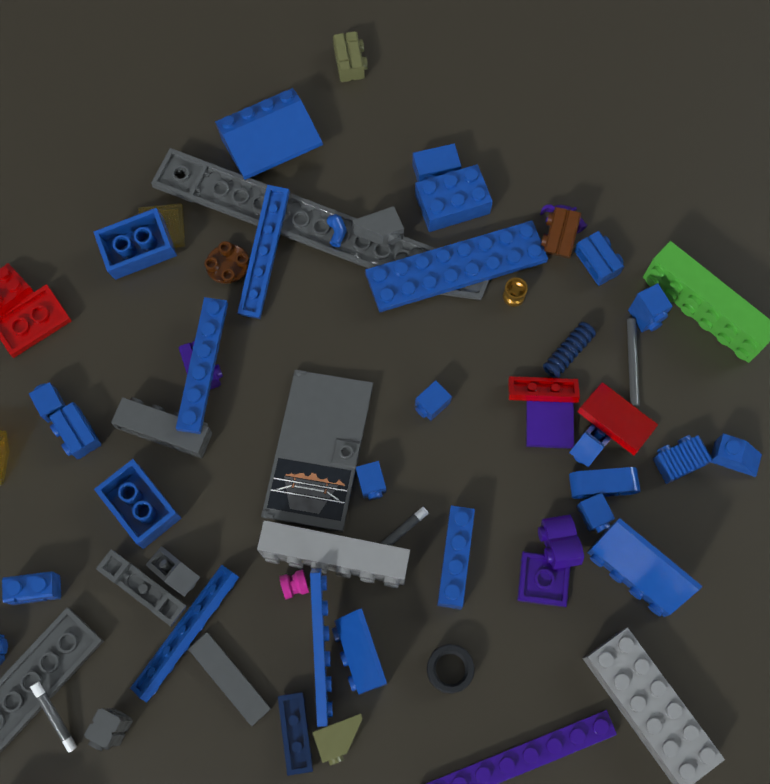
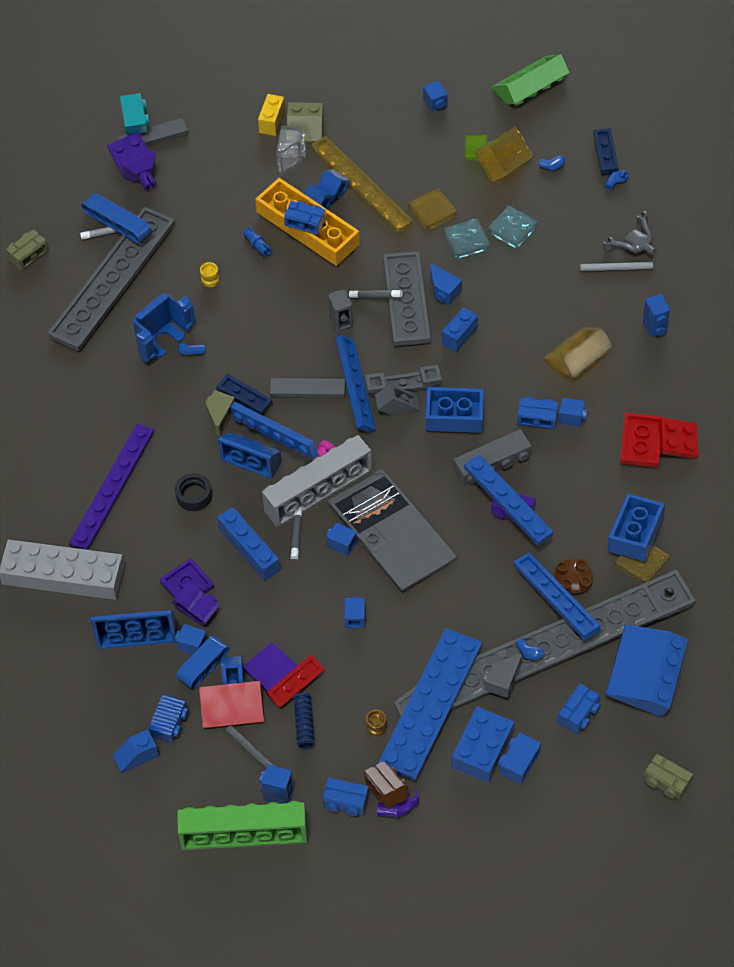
camera: 135 degrees right, 15 degrees down
(351, 158) = (578, 709): none -> blue brick

